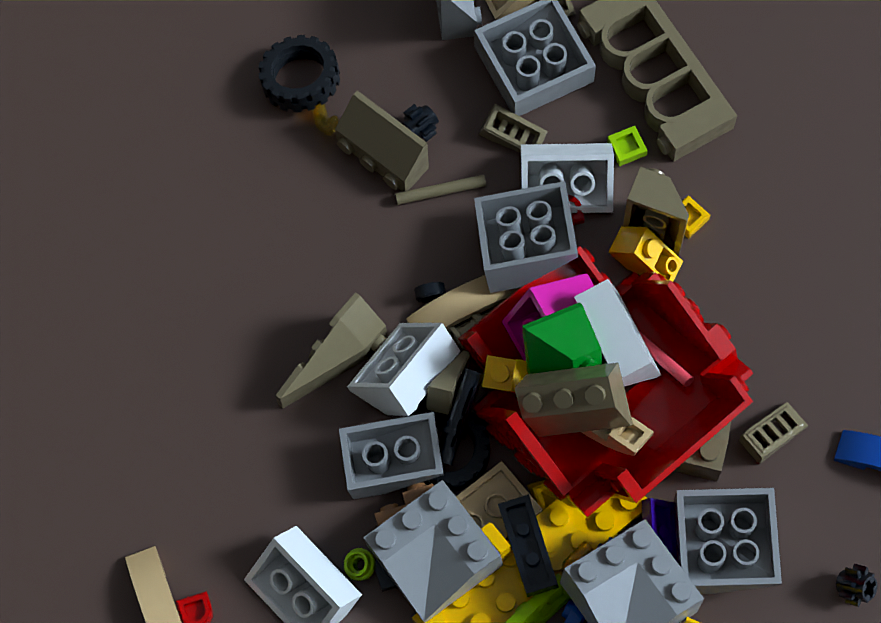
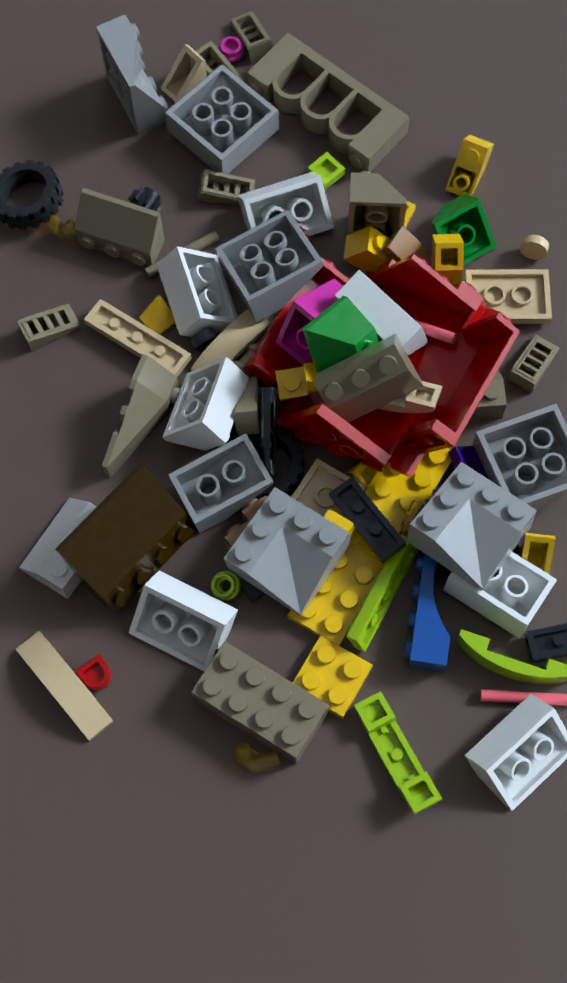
camera: 20 degrees left, 0 degrees up
(215, 468) = (44, 561): none -> white slope
(273, 483) = (126, 539): none -> dark brown slope
(276, 234) = (44, 337): none -> dark tan slope
(361, 269) = (136, 337): none -> tan plate
(391, 251) = (158, 316): none -> yellow slope
(441, 237) = (196, 291): none -> white slope
(681, 268) = (405, 244): none -> medium nougat slope
(717, 289) = (448, 256): none -> yellow slope
(748, 262) = (466, 217): none -> green slope
(776, 349) = (517, 293): none -> tan plate
(784, 190) = (469, 165): none -> yellow slope
(821, 304) = (534, 247): none -> tan tile

